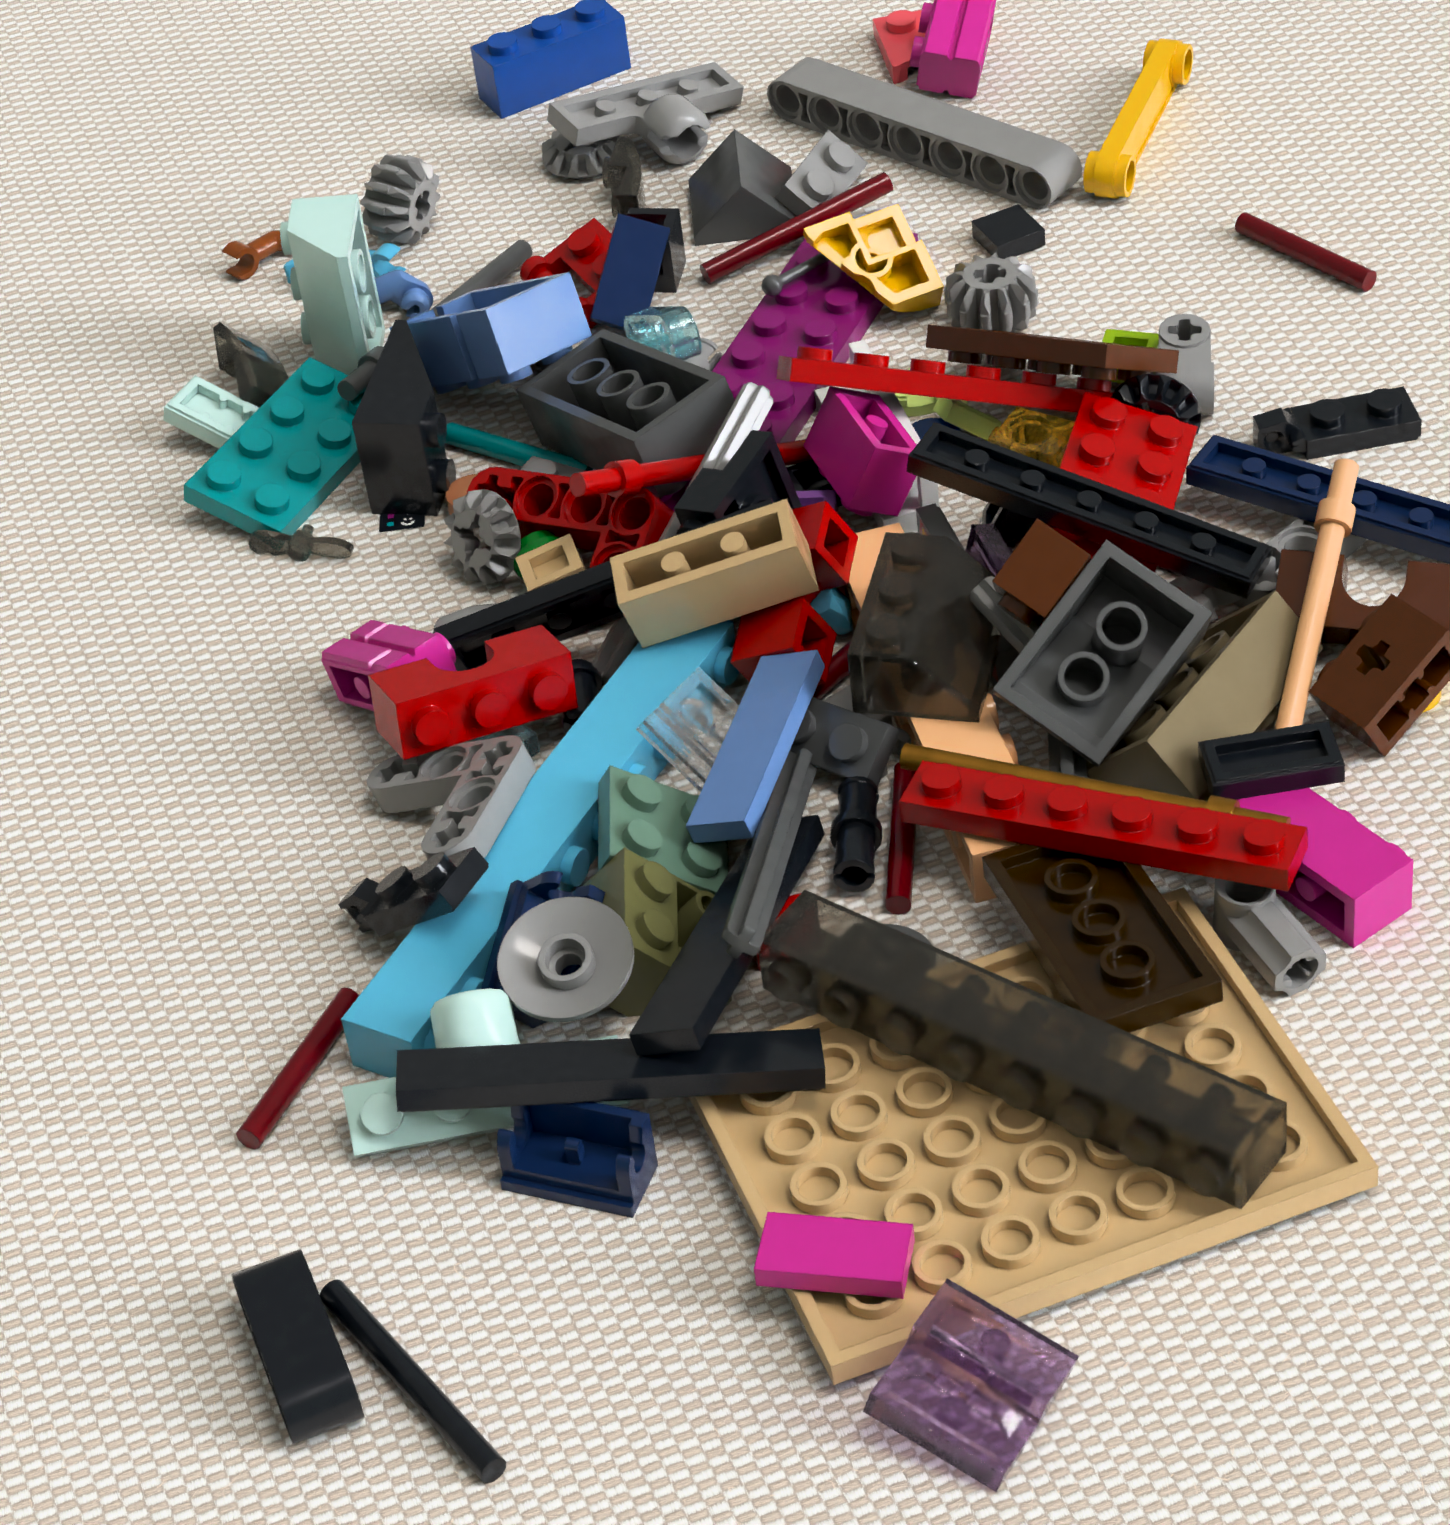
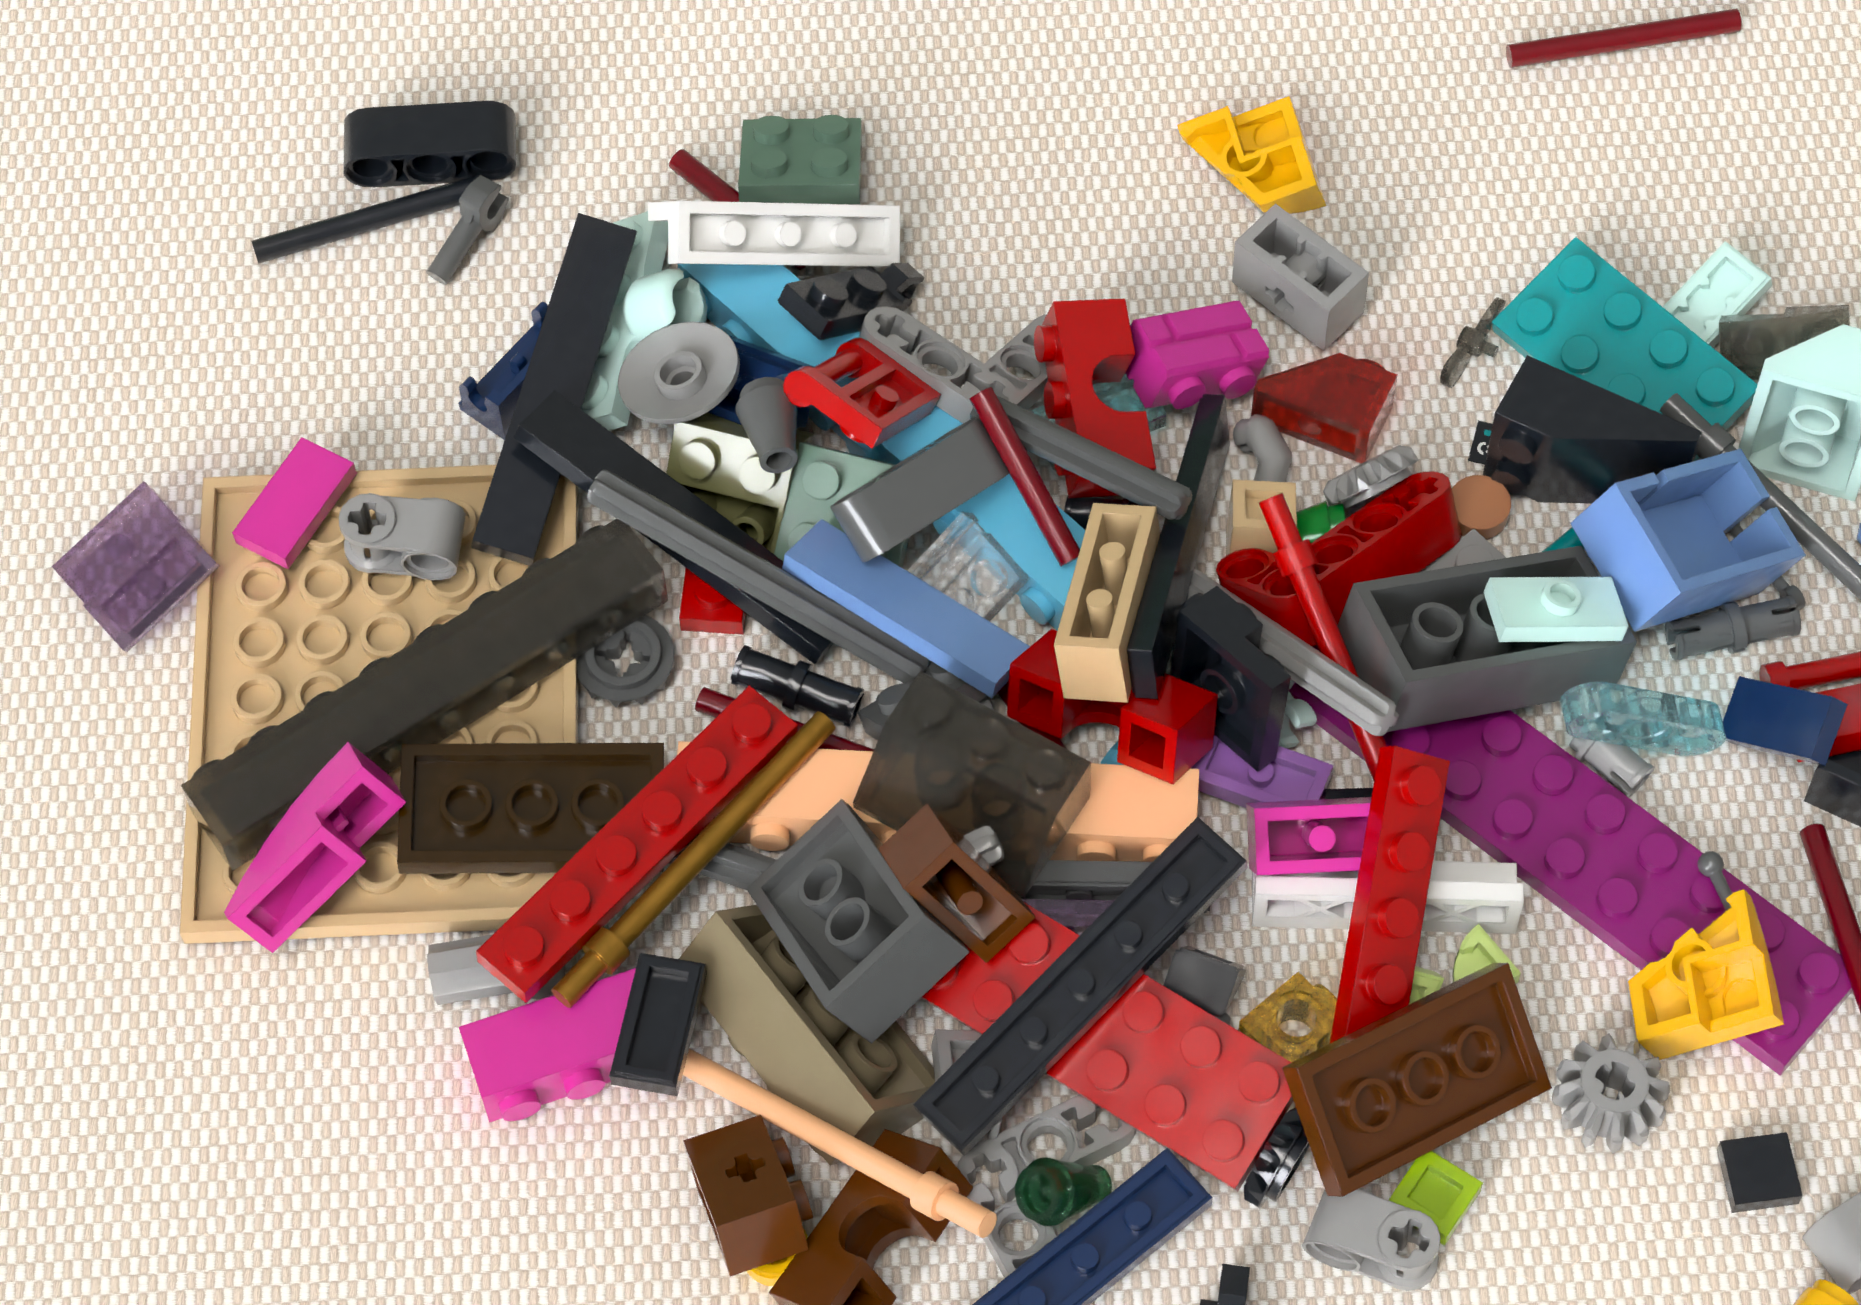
camera: 105 degrees right, 20 degrees up
(127, 718) = (1259, 154): none -> yellow slope
(235, 1018) = (801, 160): none -> sand green plate
(278, 630) = (1299, 277): none -> light grey brick
(350, 947) = (779, 233): none -> white fence
(376, 1262) = (480, 210): none -> dark grey bar
(405, 581) = (1329, 403): none -> clear red slope
(545, 806) = (871, 406): none -> red plate
(561, 643) = (1097, 463): none -> dark grey axle
(593, 678) = (1025, 476): none -> dark red bar
(602, 353) = (1555, 609): none -> light aqua plate
(611, 849) = (769, 423): none -> dark grey cone
(637, 739) = (919, 489): none -> dark grey beam
(843, 1136) = (405, 538): none -> light grey piece
(1240, 1043) = (314, 847): none -> dark pink slope
(1262, 512) = (1058, 1189): none -> clear green cone

